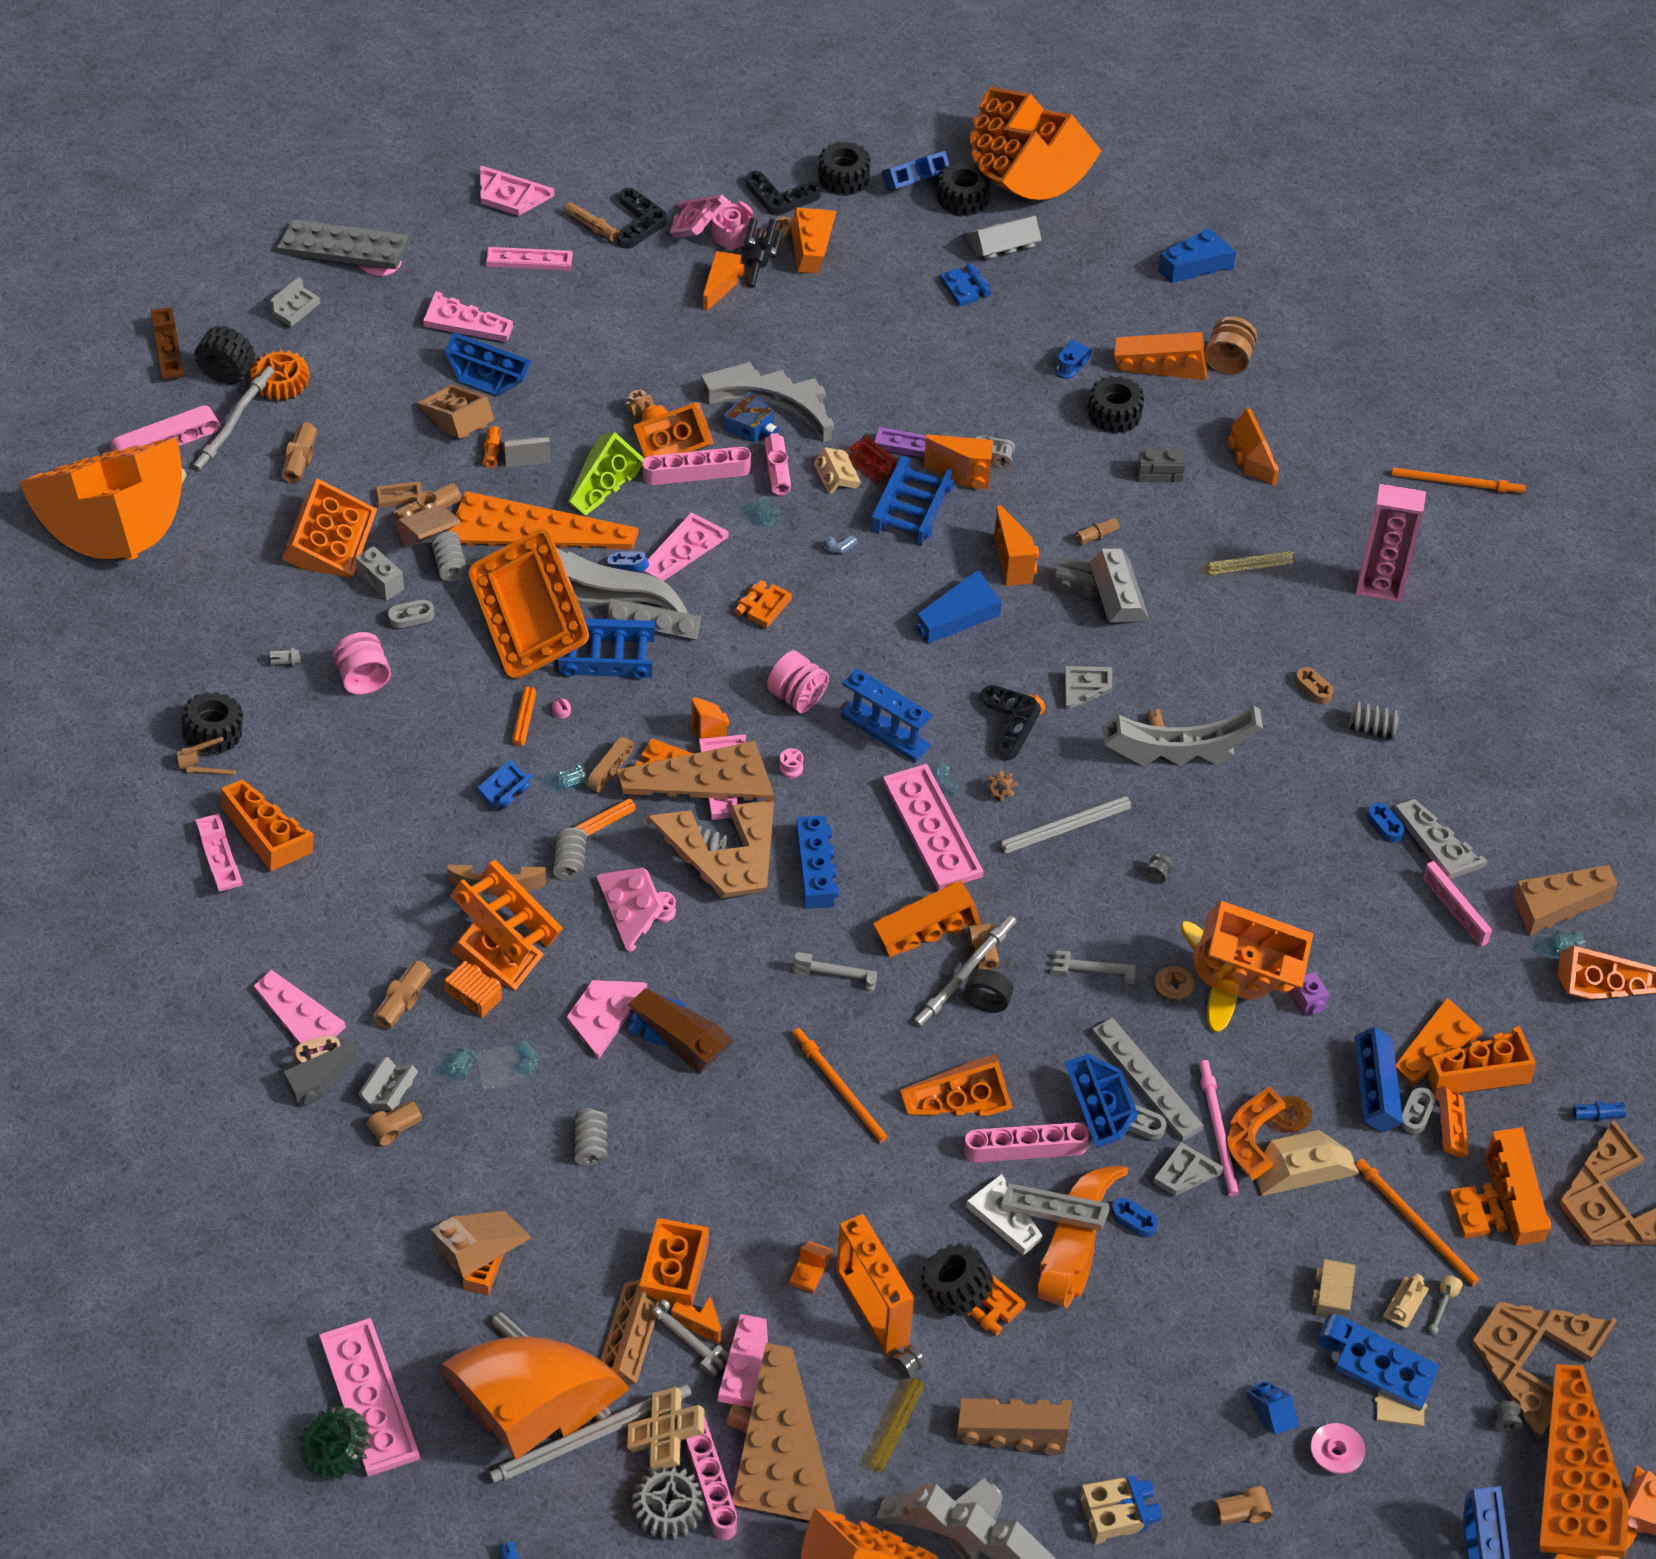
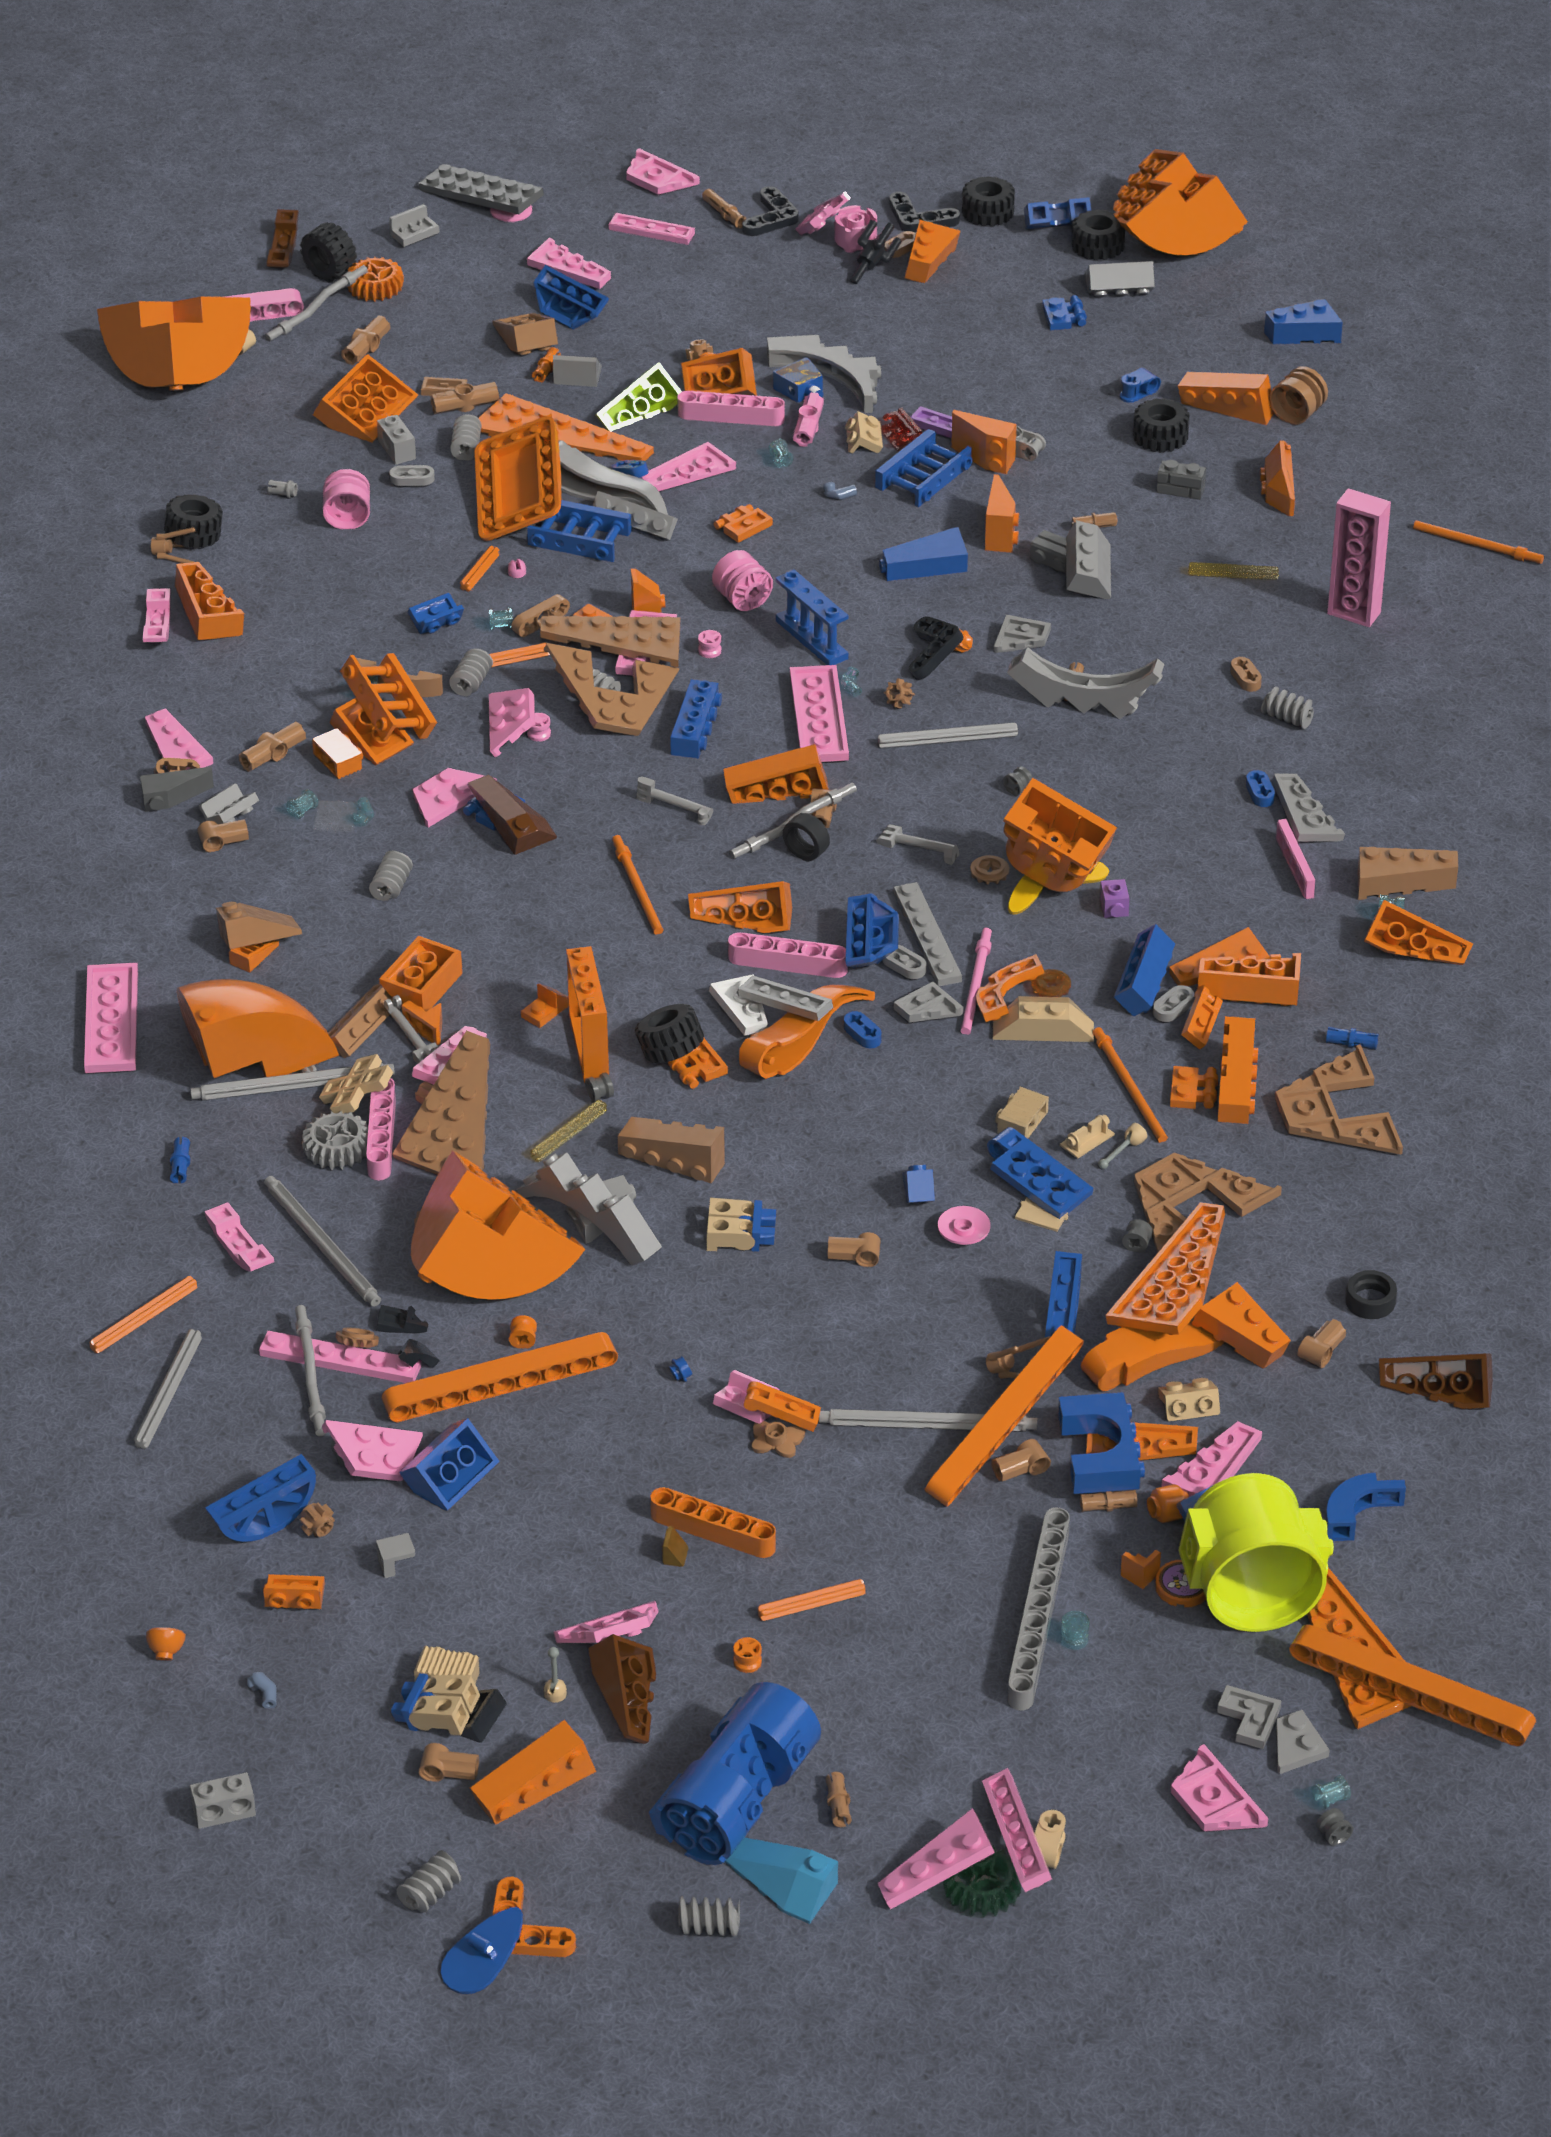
camera: 20 degrees right, 10 degrees down
(338, 1450) = (65, 1038): clear green gear -> none
(425, 524) = (446, 408): medium nougat slope -> none
(722, 277) = (826, 269): orange slope -> none

